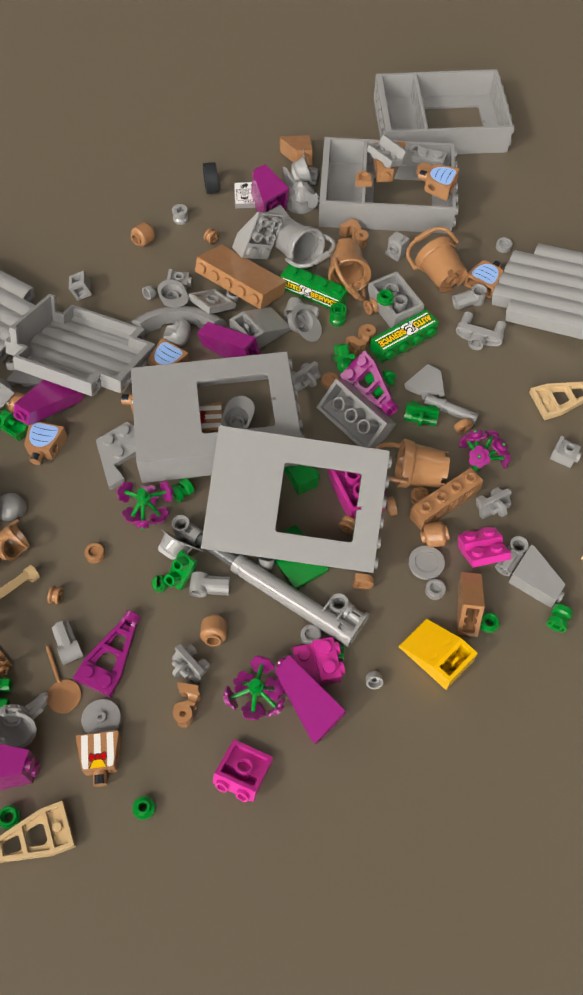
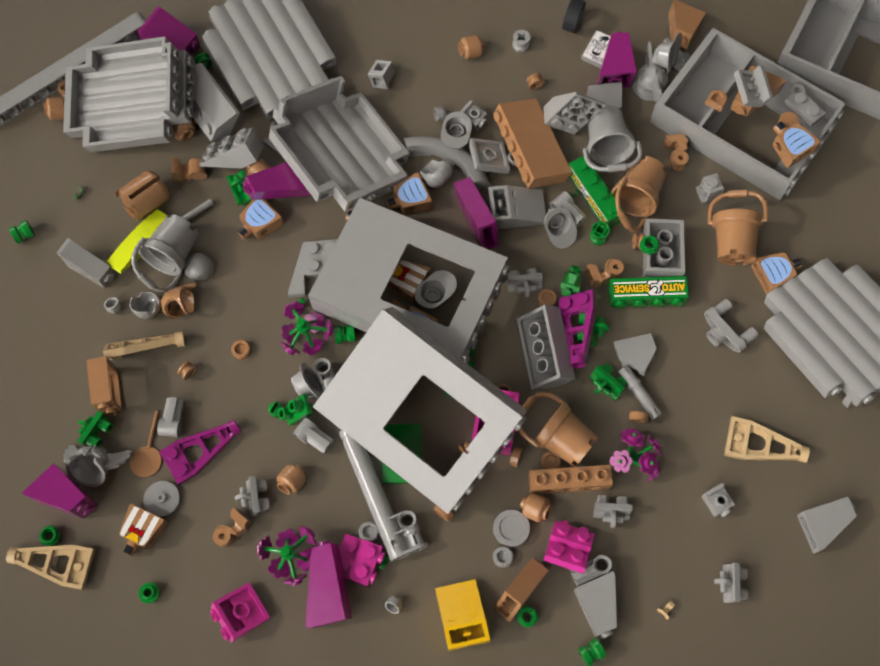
camera: 35 degrees right, 10 degrees up
(474, 297) = (742, 284): light grey piece -> none
(504, 245) = (825, 243): light grey tile -> none

